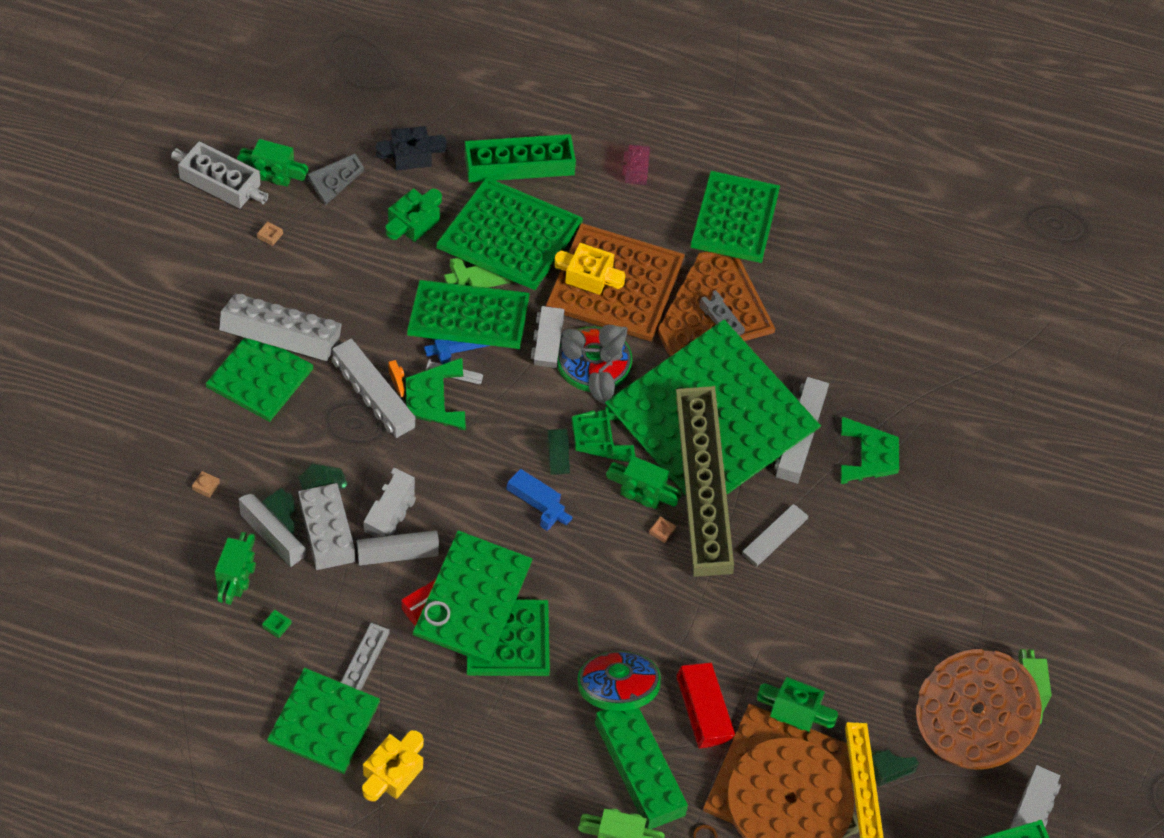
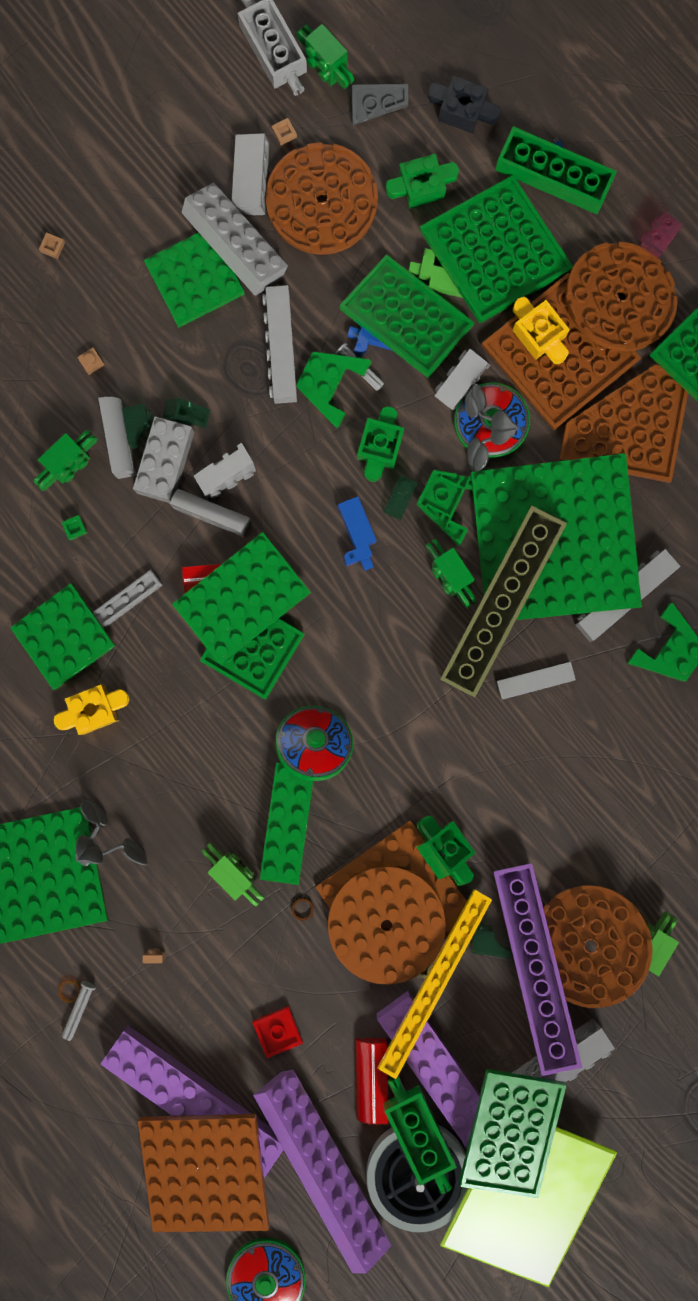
camera: 35 degrees right, 30 degrees up
(113, 411) = (51, 245): none -> medium nougat plate
(261, 274) = (250, 173): none -> light grey brick
(316, 285) = (321, 225): none -> dark orange plate
(396, 374) = (309, 342): orange plate -> none
(437, 603) = (198, 611): light grey piece -> none
(513, 418) = (380, 443): none -> green brick
(661, 225) = (595, 302): none -> dark orange plate
(662, 530) = (444, 620): nougat tile -> none
(705, 705) = (373, 801): red brick -> none
(719, 311) = (631, 442): dark grey plate -> none
(947, 749) = (537, 970): none -> medium lavender brick

